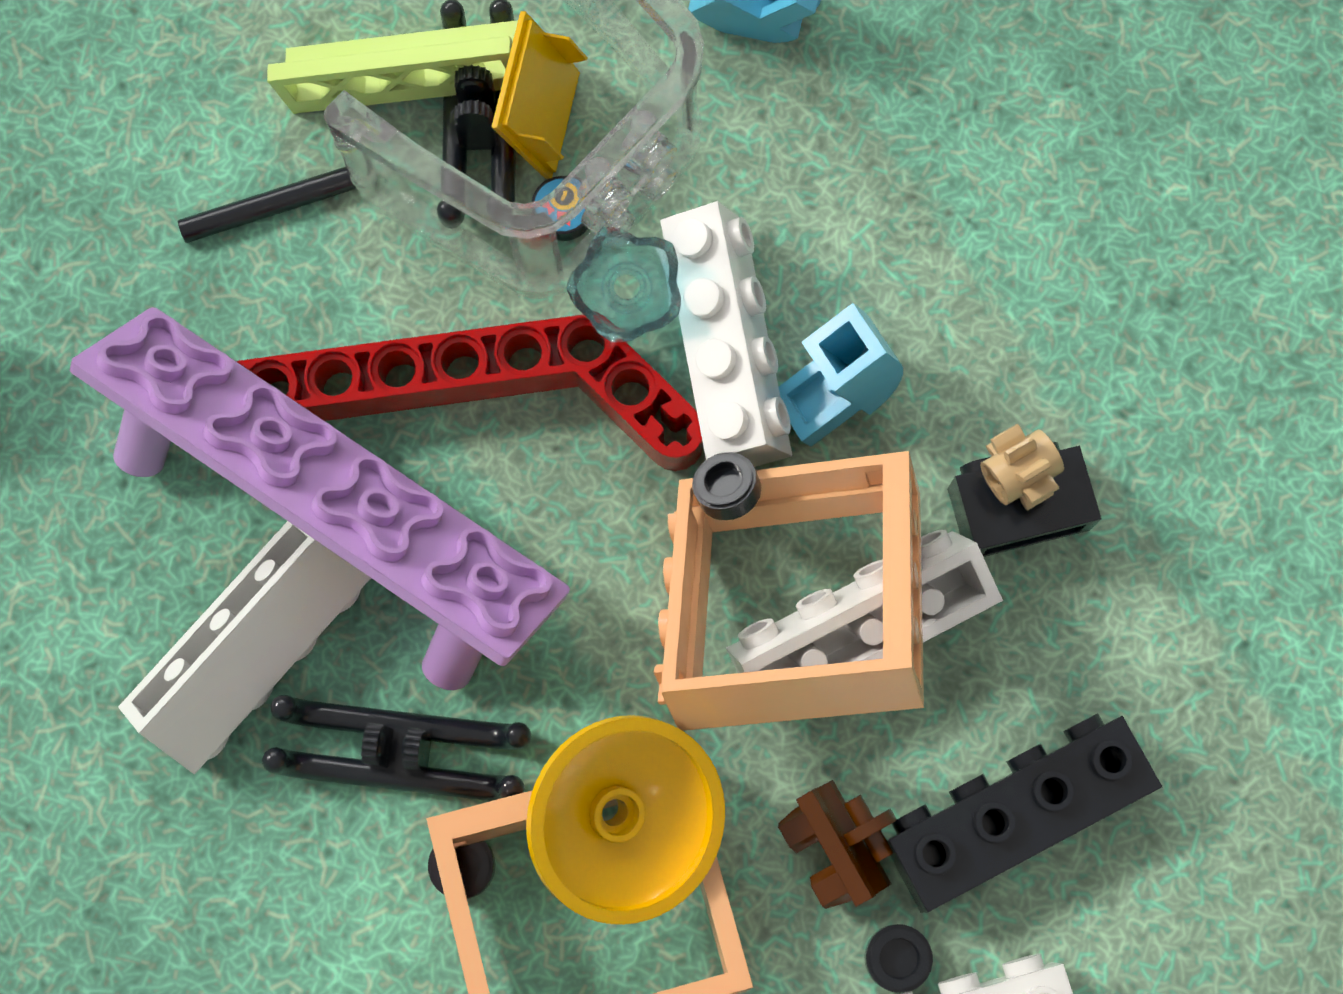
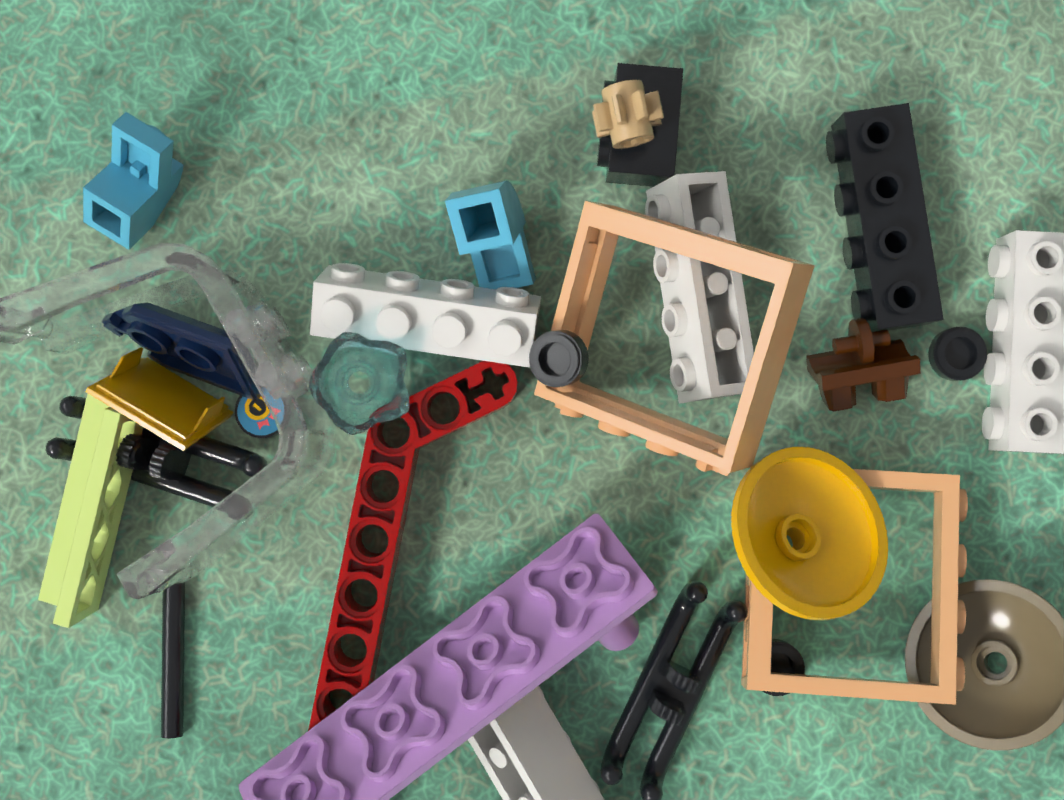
camera: 75 degrees left, 10 degrees up
(606, 87) = (184, 346): none -> dark blue tile

